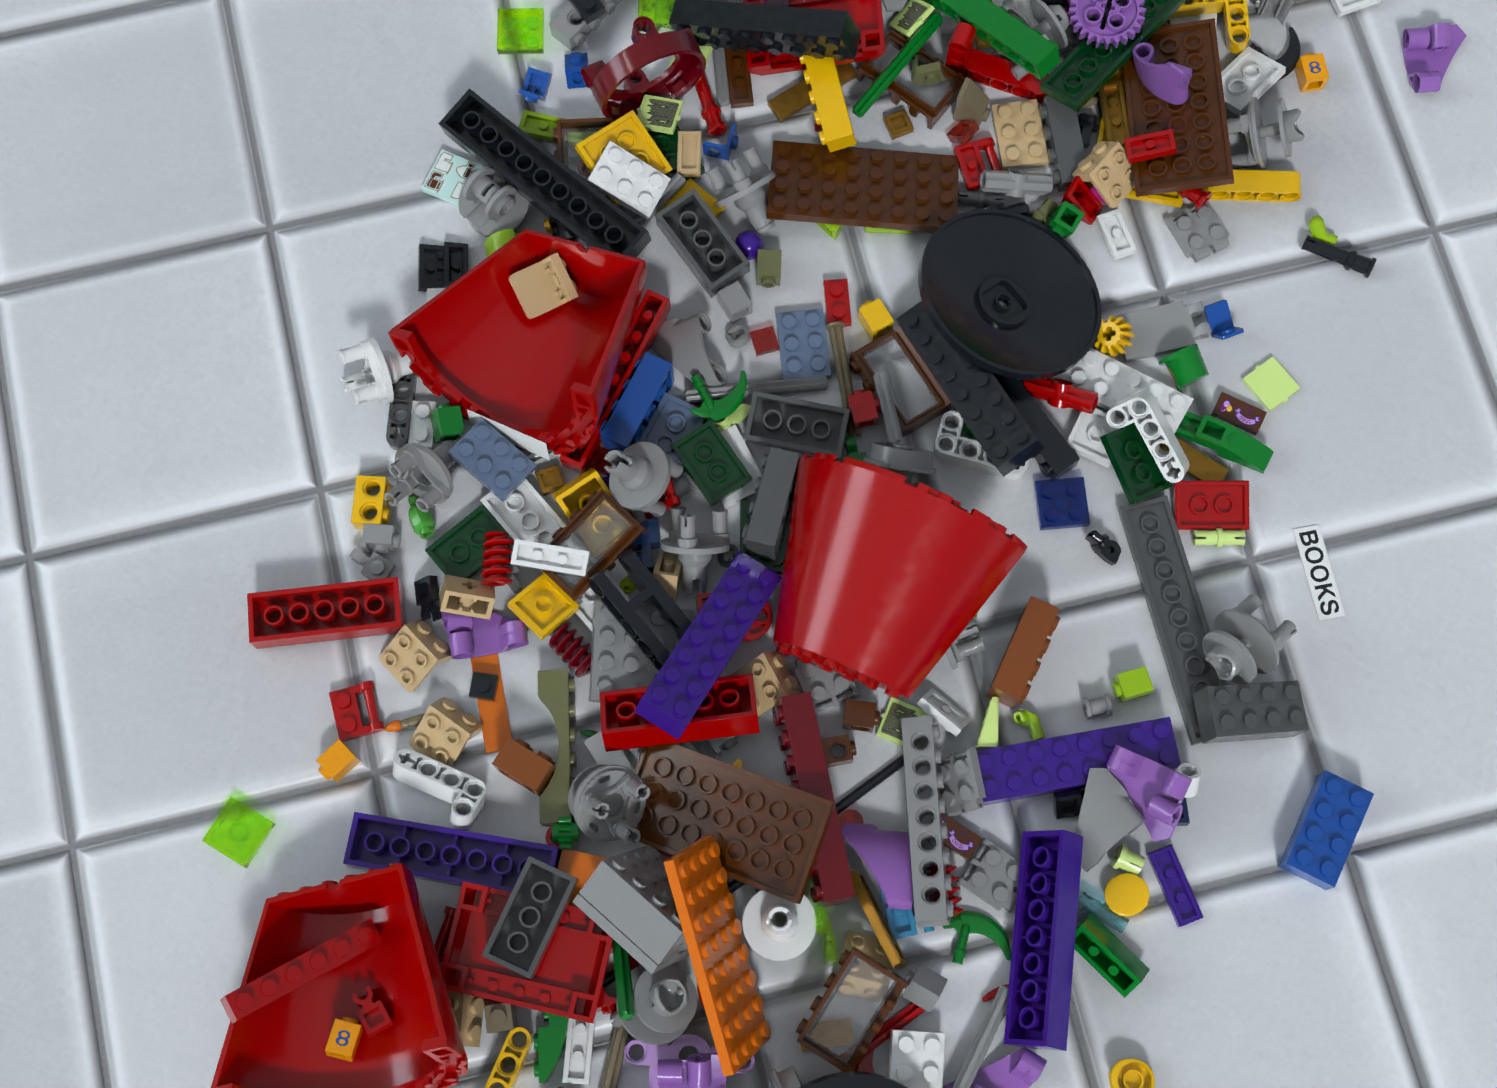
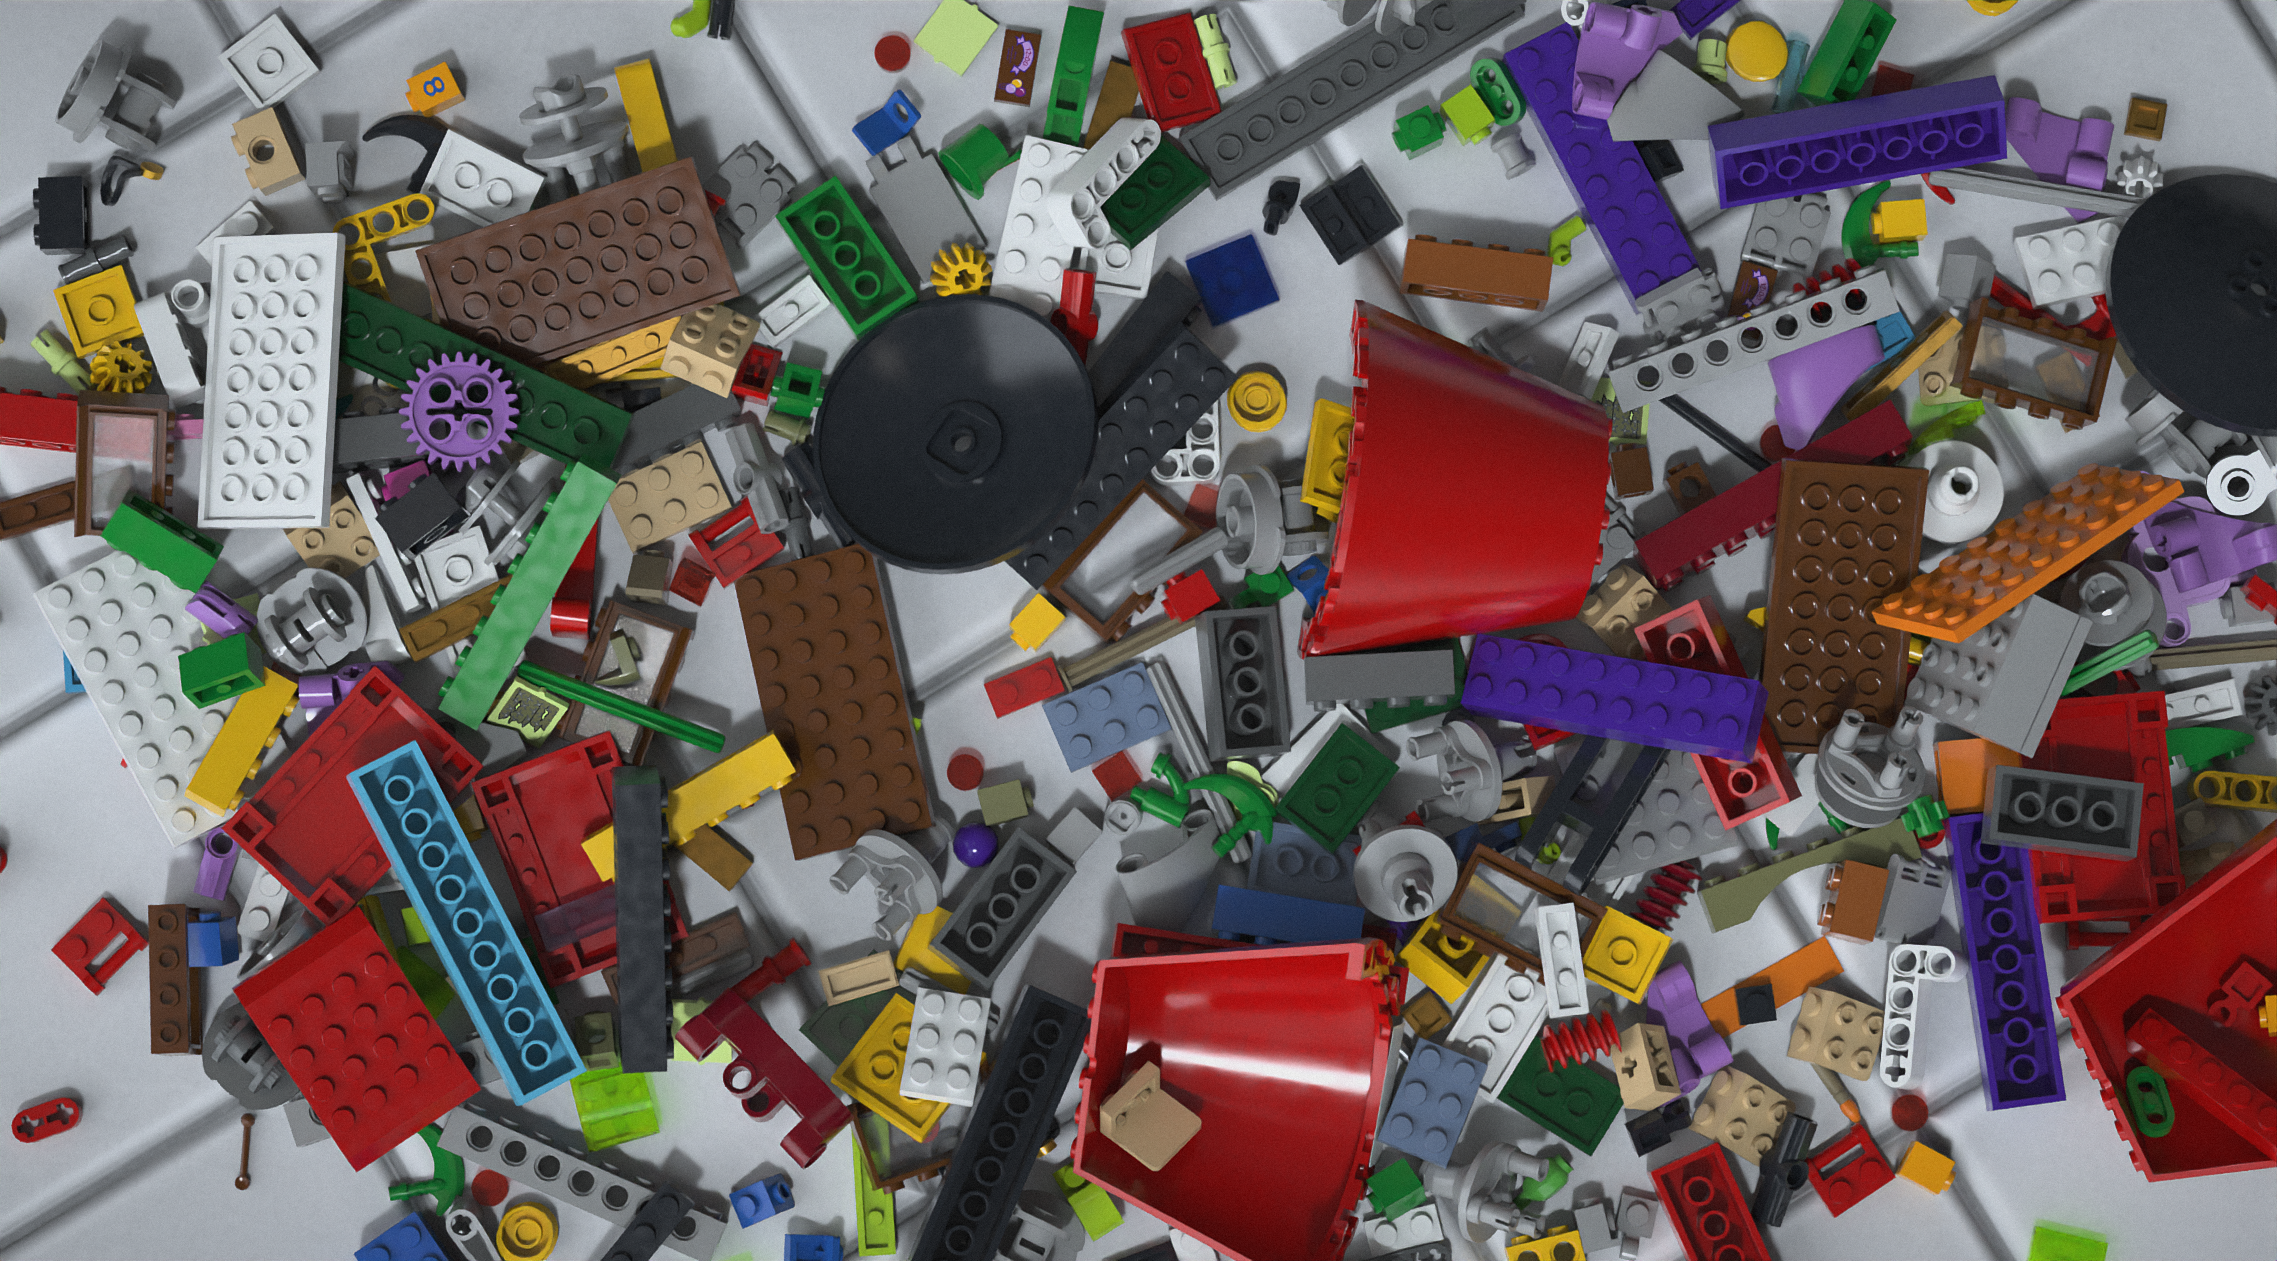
camera: 110 degrees left, 10 degrees up
(321, 922) = (2150, 1104): none -> green plate
(370, 667) = (1784, 1169): none -> black piece
(378, 764) = (1909, 1112): none -> clear red tile
(512, 806) = (1912, 901): none -> light grey plate
(660, 113) = (812, 1039): piece -> none
(725, 151) = (820, 921): blue bracket -> none
(740, 357) = (1159, 803): none -> green plant
(795, 254) = (965, 772): none -> clear red tile
(898, 124) = (704, 683): pearl gold tile -> none
(920, 440) = (1202, 507): none -> clear red tile
(978, 493) = (1257, 401): none -> yellow piece
(980, 955) = (1900, 221): none -> yellow brick
(989, 731) = (1595, 292): yellowish green slope -> none
(1080, 984) = (1891, 81): none -> clear red tile
(1085, 591) = (1351, 215): none -> black slope
(1129, 648) = (1419, 132): none -> green brick
(1142, 271) = (846, 257): none -> green brick
(1144, 709) = (1498, 92): none -> green plate
(1150, 146) = (665, 291): red plate -> none
(1164, 80) = (556, 281): medium lavender panel -> none
(1267, 341) = (892, 54): none -> clear red tile

